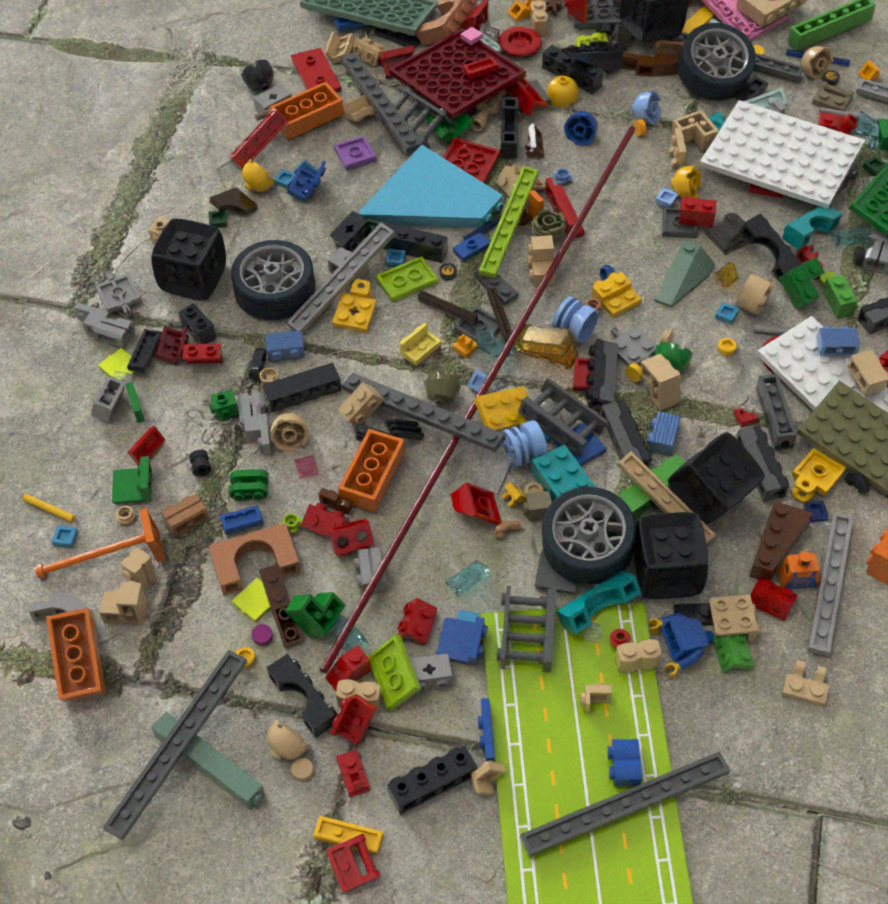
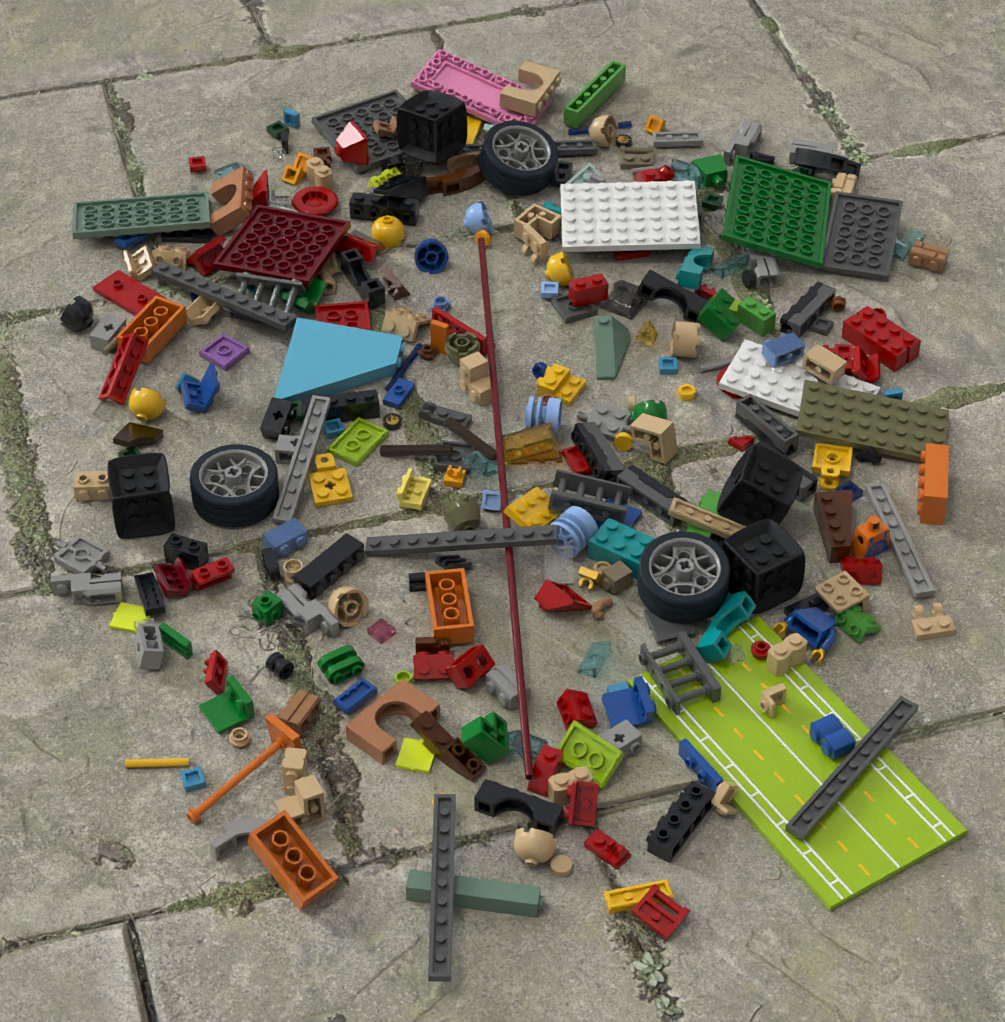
camera: 30 degrees left, 10 degrees down
(262, 635) = (444, 779): magenta tile -> none
(284, 178) = (173, 398): dark azure tile -> none
(361, 404) = (400, 556): tan brick -> none
(471, 36) = (274, 207): bright pink tile -> none
(480, 67) = (305, 232): red tile -> none
(508, 222) = (424, 357): lime tile -> none
(664, 433) = (683, 478): medium blue brick -> none

